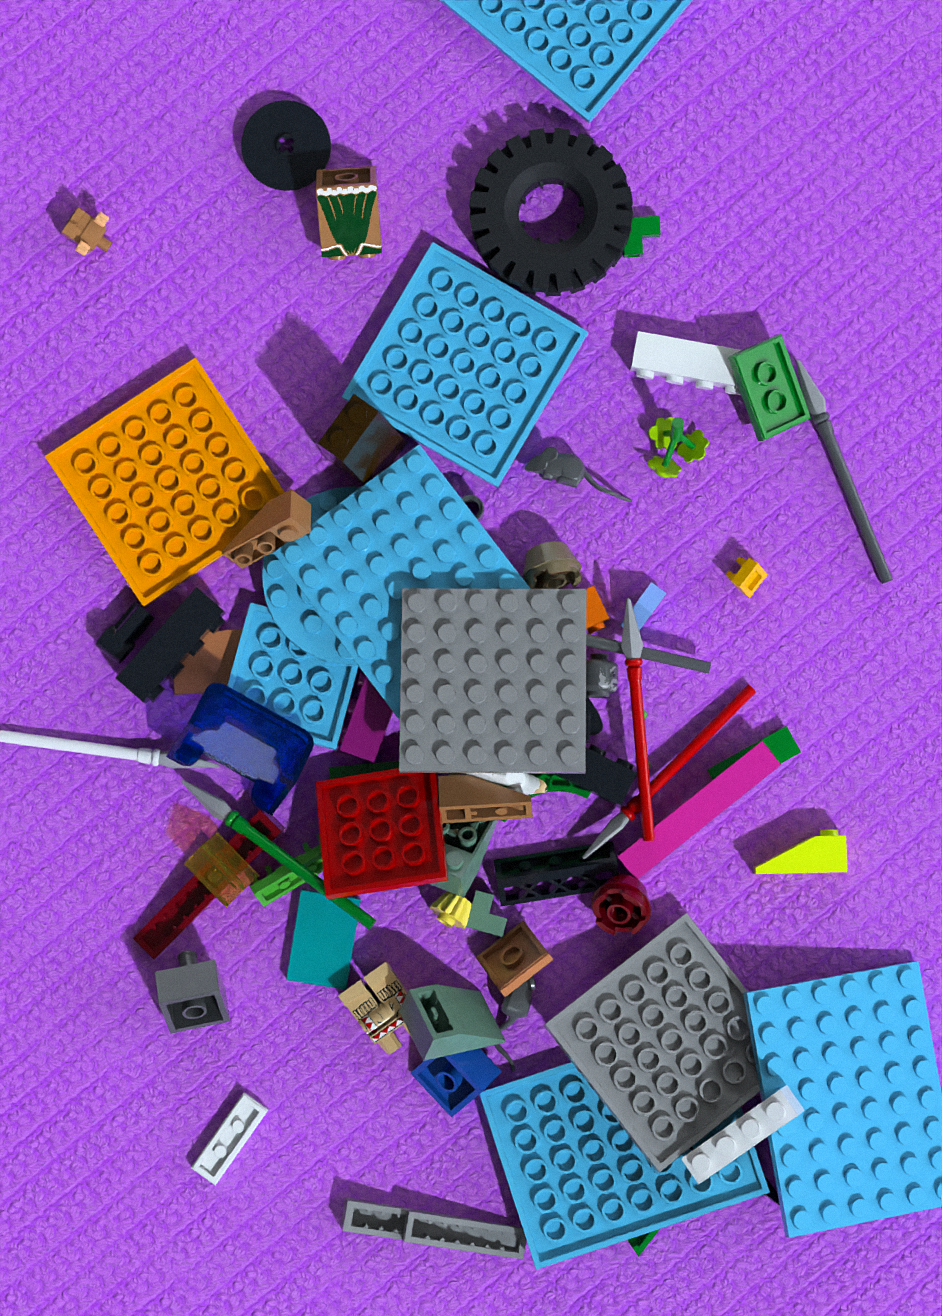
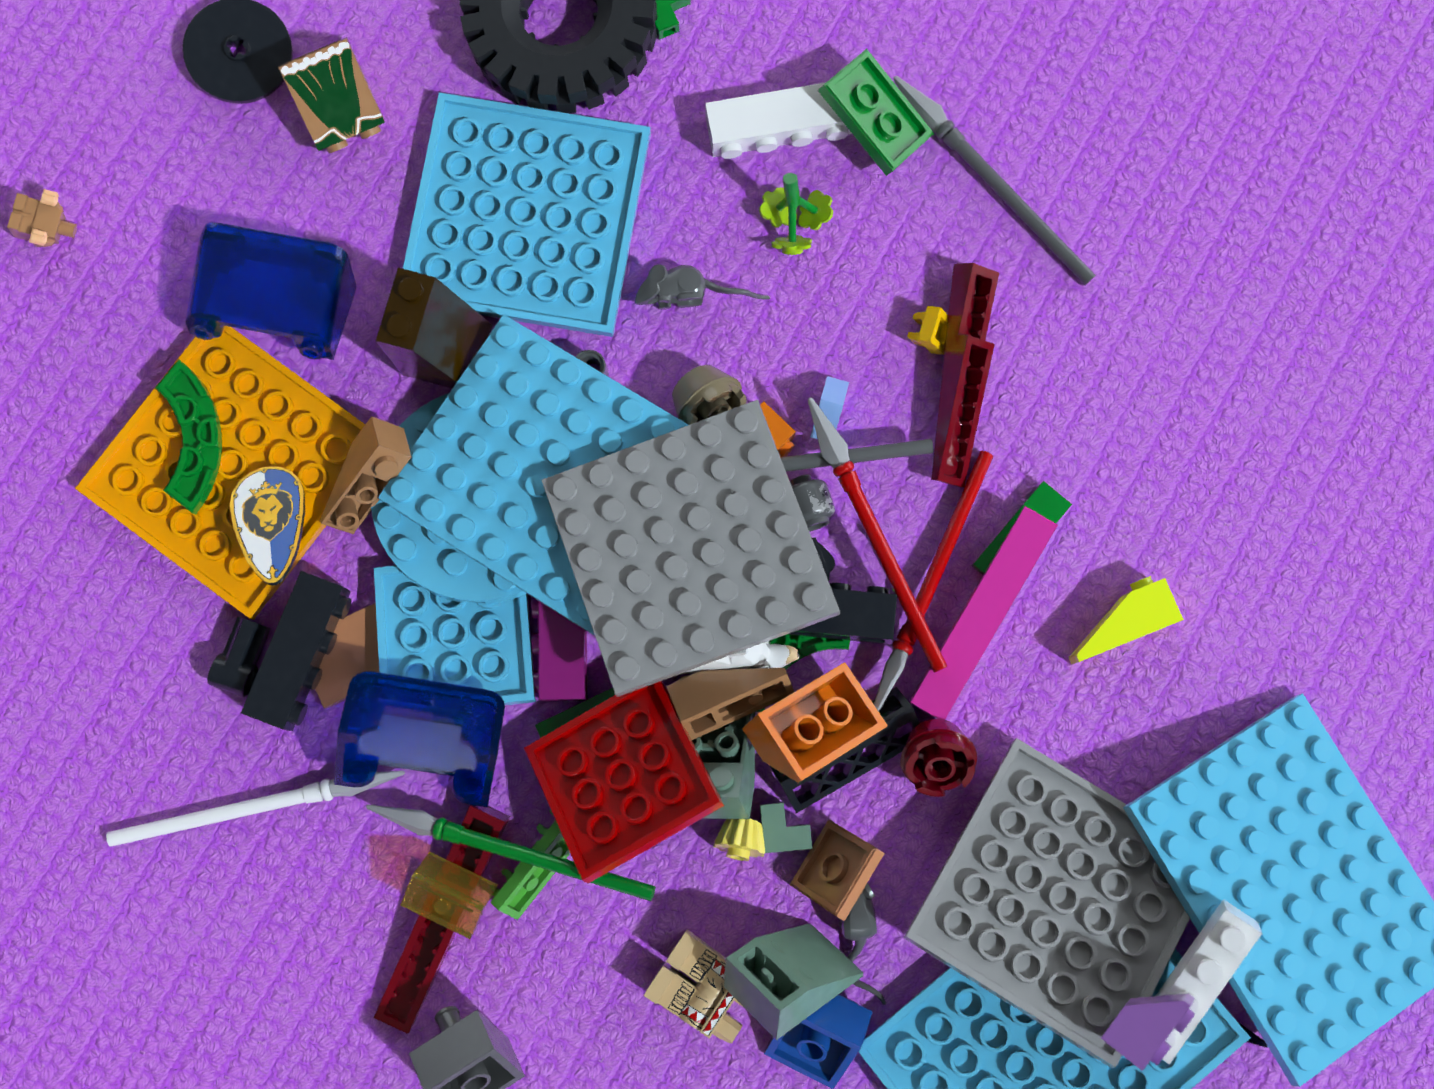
camera: 25 degrees left, 5 degrees down
(153, 452) = (201, 437): none -> green tile
(185, 538) = (269, 520): none -> shield
(247, 357) = (271, 287): none -> clear blue windscreen
(322, 942) = (601, 937): teal tile -> none
(538, 846) = (815, 724): none -> orange slope
(690, 1148) = (1145, 1024): none -> medium lavender slope
(758, 618) = (964, 370): none -> dark red slope

